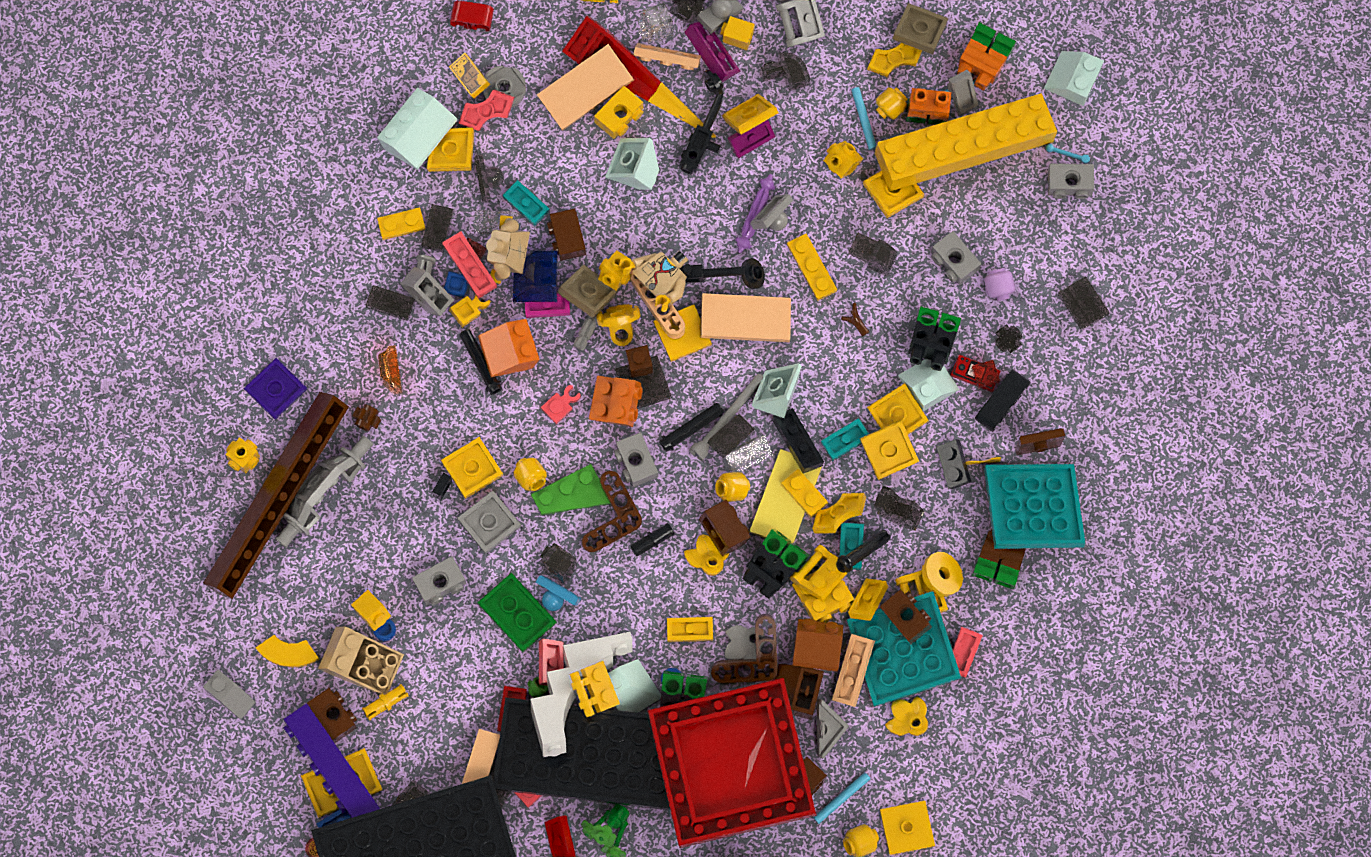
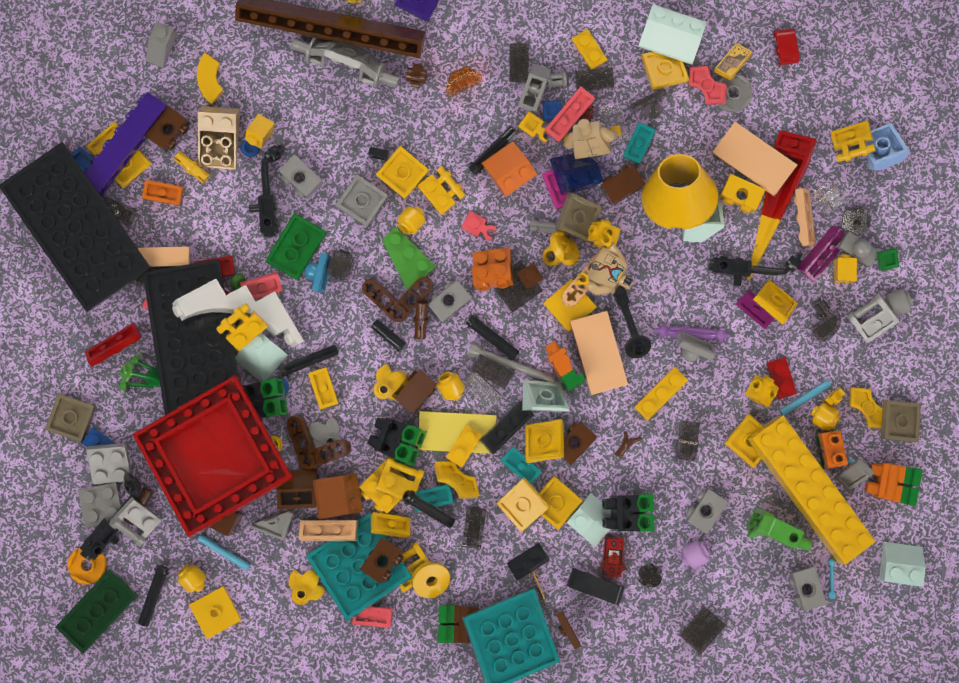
camera: 75 degrees right, 10 degrees up
(404, 744) = (162, 193): none -> orange plate
(457, 628) = (266, 203): none -> black piece
(508, 438) = (437, 194): none -> yellow plate
(610, 186) = (680, 206): none -> yellow cone
(647, 496) = (421, 308): none -> reddish brown pin
(652, 634) = (308, 360): none -> black axle
(750, 358) = (562, 367): none -> orange hips
(826, 135) = (782, 377): none -> red plate
(826, 403) = (544, 441): none -> yellow plate
(837, 361) = (585, 437): none -> reddish brown brick
(872, 86) = (834, 397): none -> yellow plate
(991, 197) = (765, 524): none -> bright green piece

